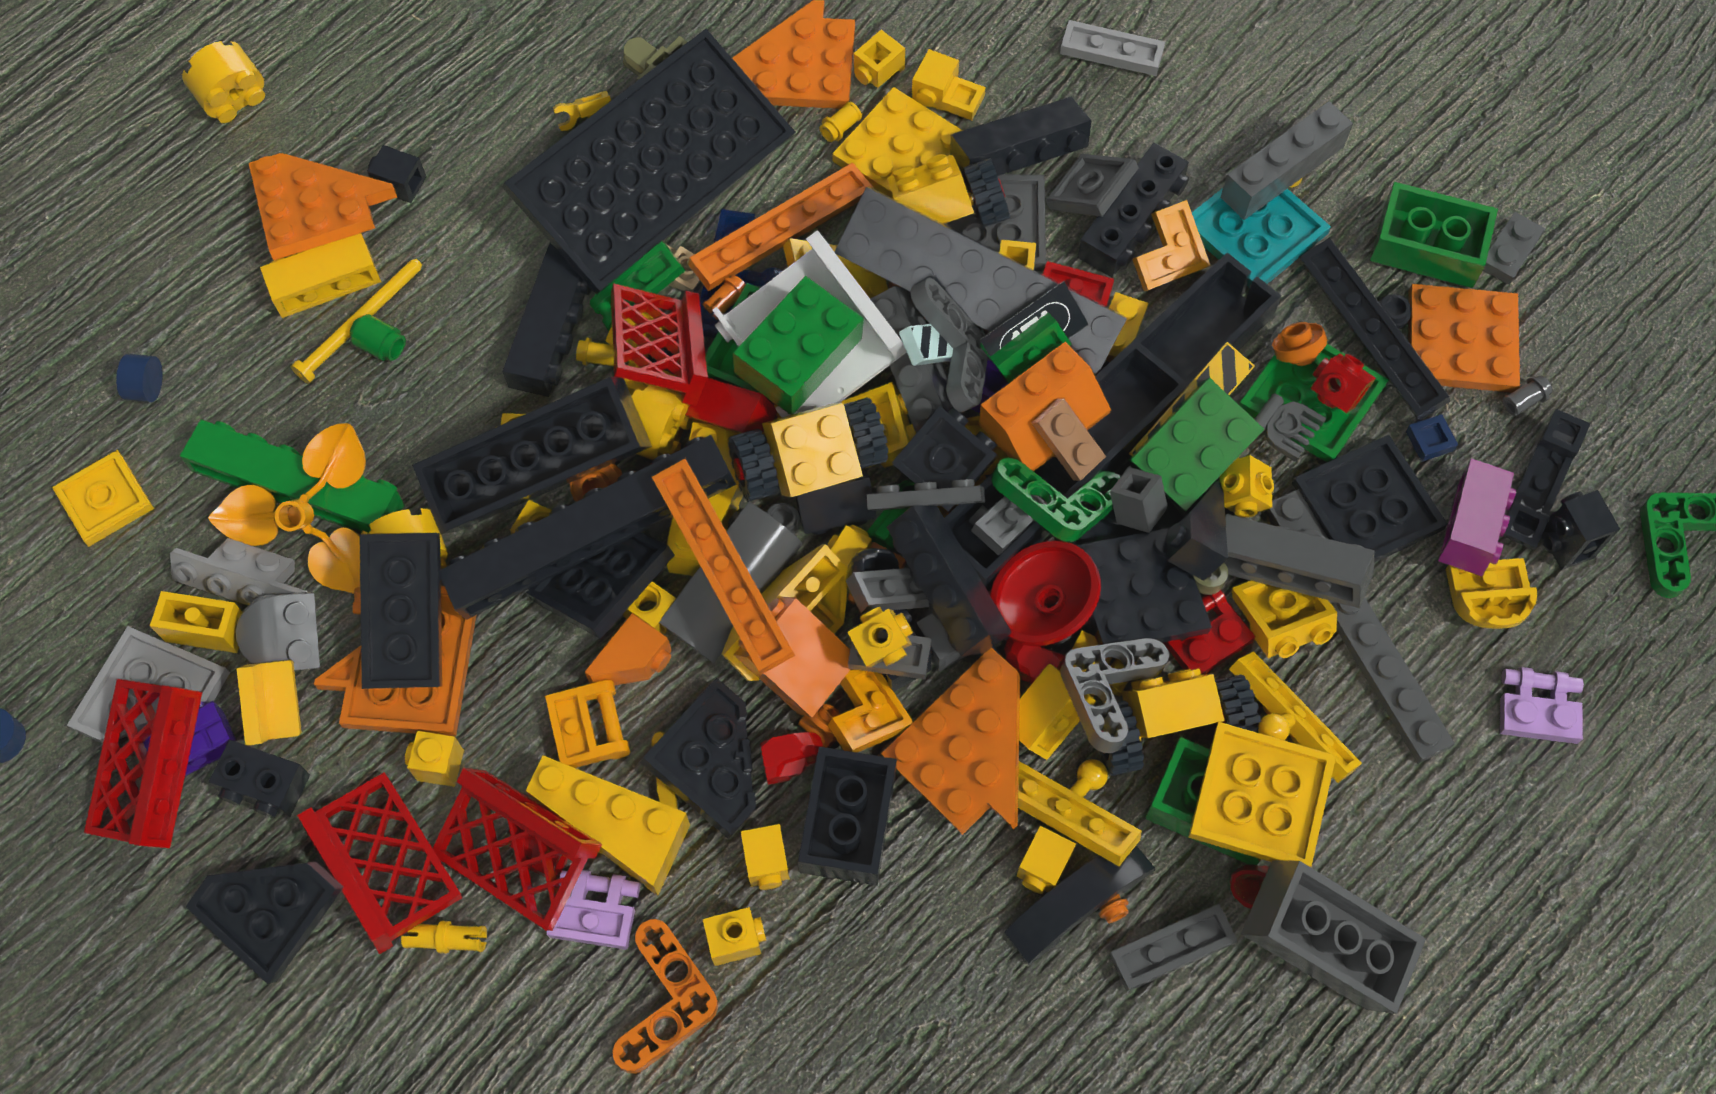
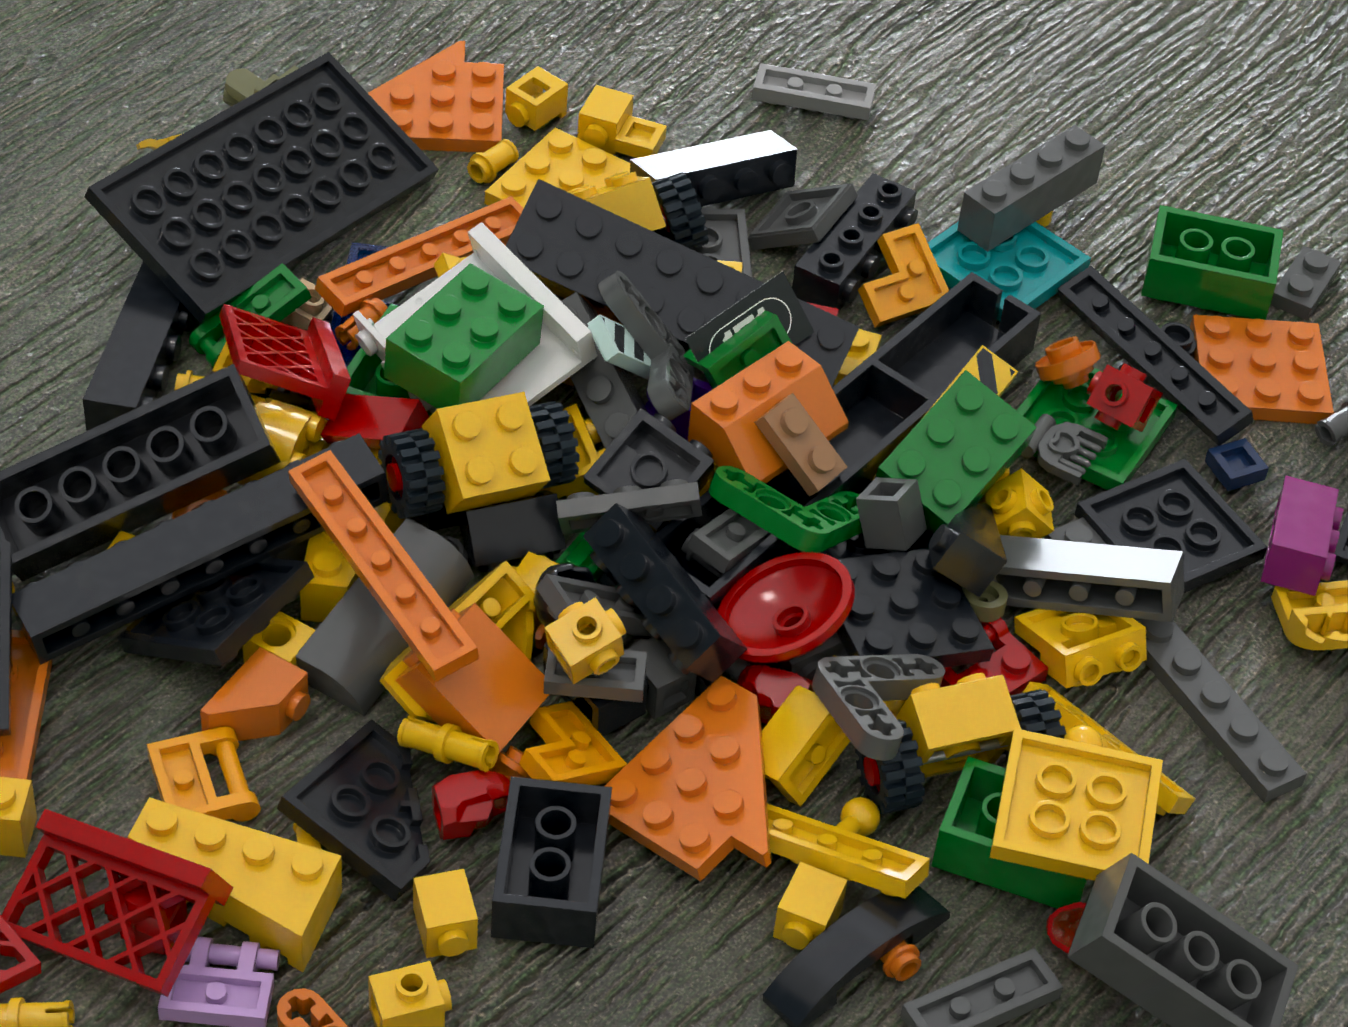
camera: 10 degrees left, 20 degrees down
(773, 707) = (448, 743): none -> yellow pin

